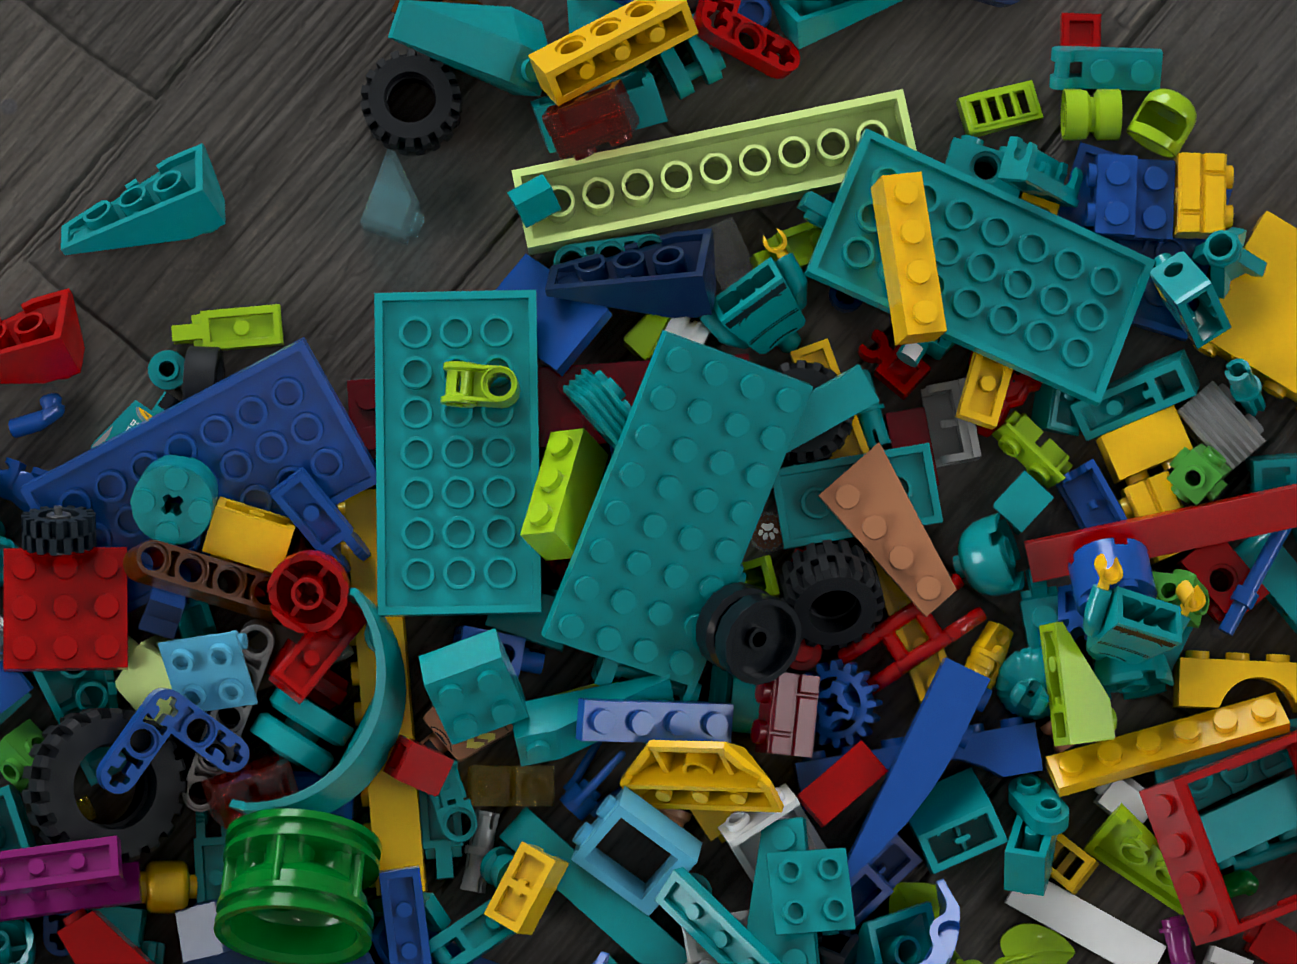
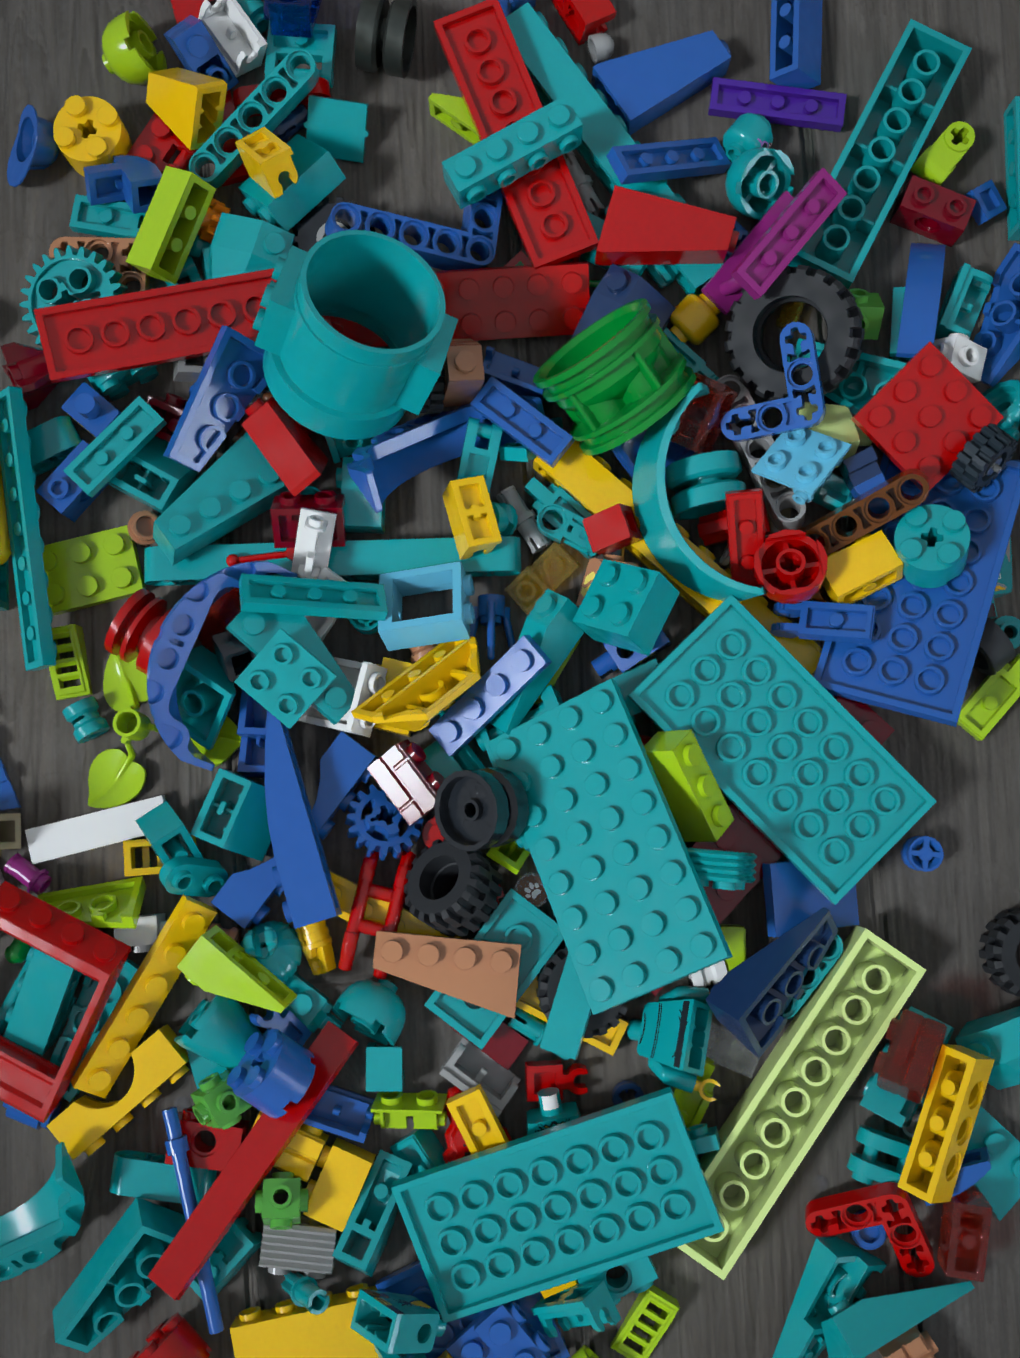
camera: 140 degrees right, 0 degrees up
(392, 205) = (976, 874): clear light blue slope -> none
(414, 254) = (930, 853): none -> blue wheel
(476, 385) = (817, 799): lime piece -> none
(534, 200) = (892, 963): teal slope -> none
(841, 783) = (332, 770): red slope -> none
(908, 258) = (612, 1168): yellow brick -> none
(1131, 624) = (229, 1056): teal torso -> none

